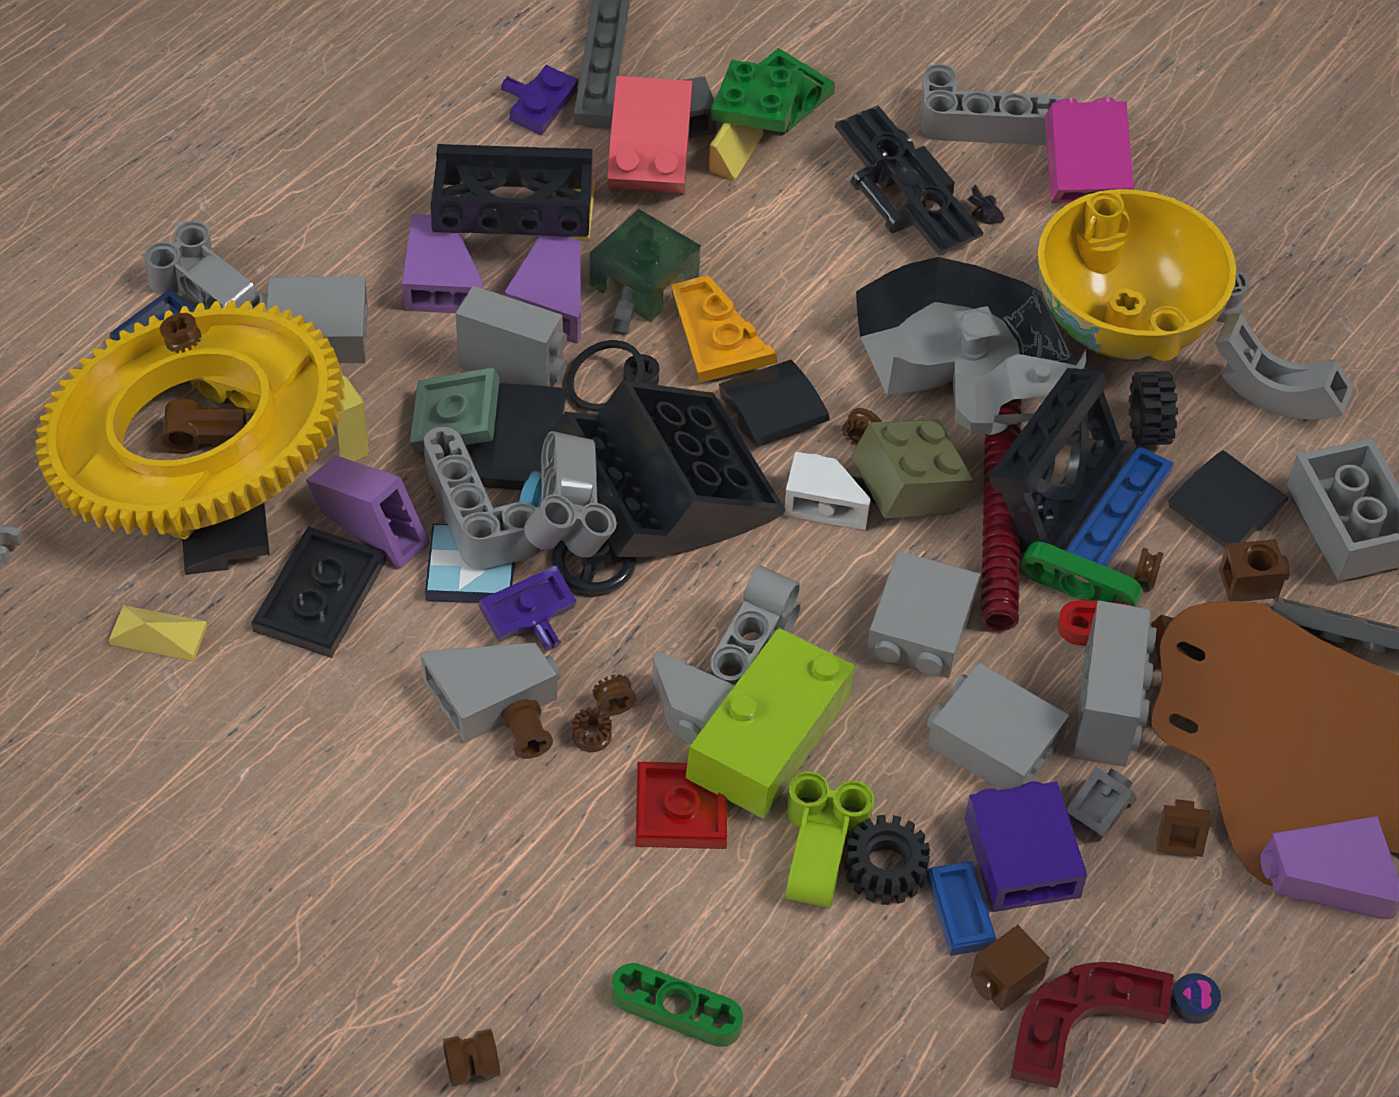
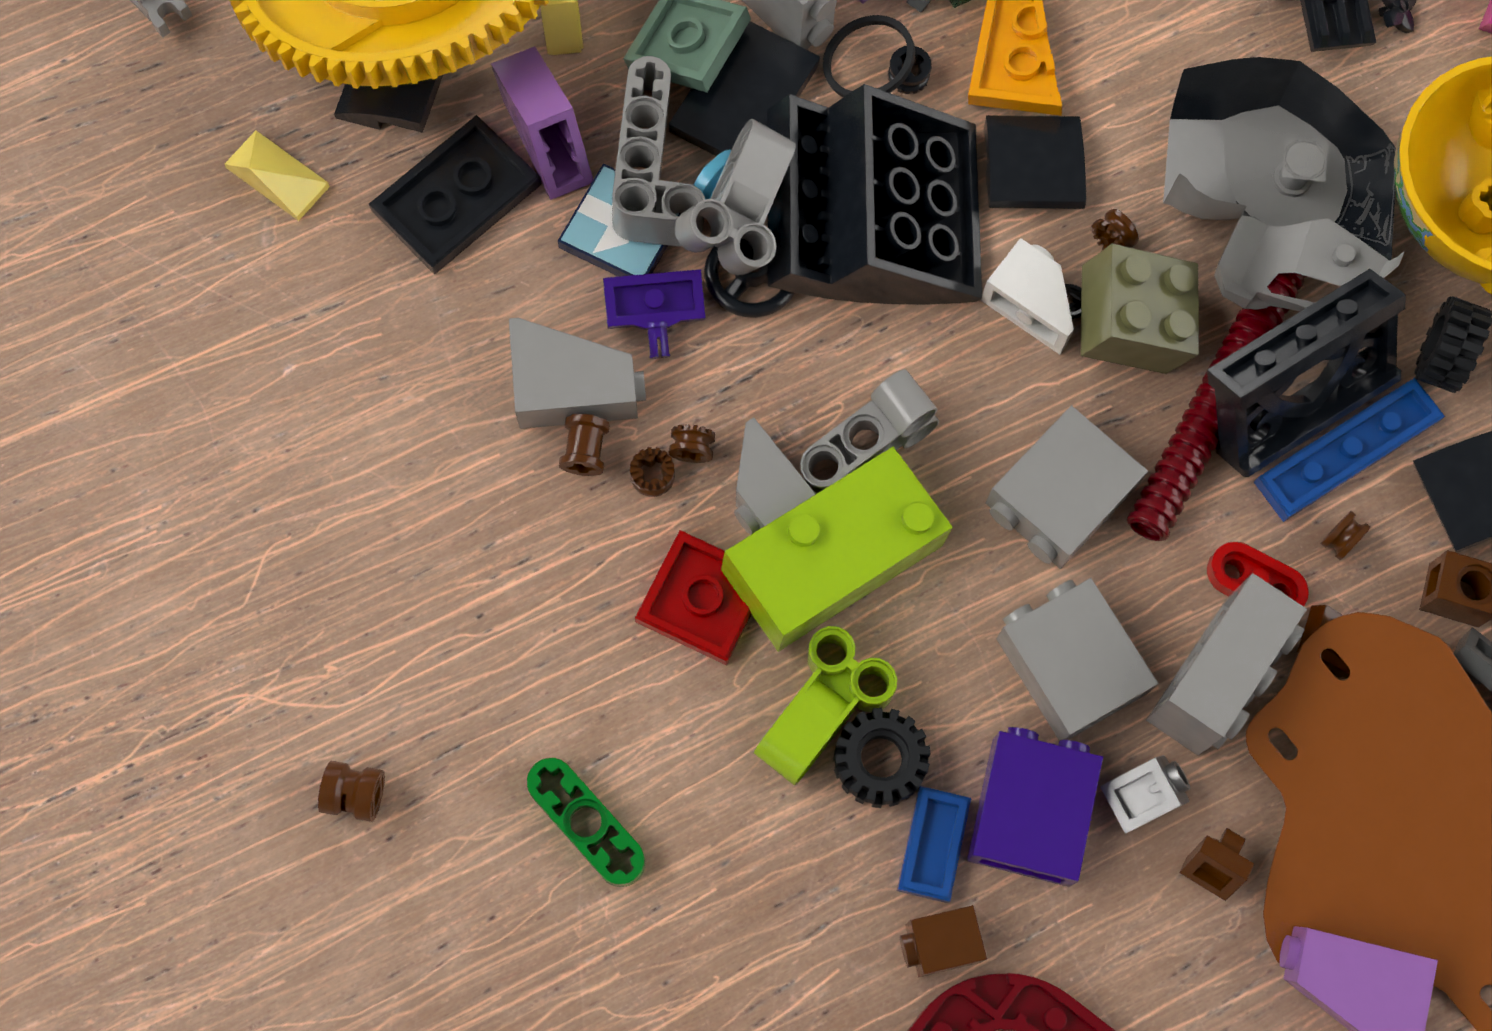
camera: 25 degrees right, 20 degrees up
(1056, 569) = (1262, 515): green beam -> none

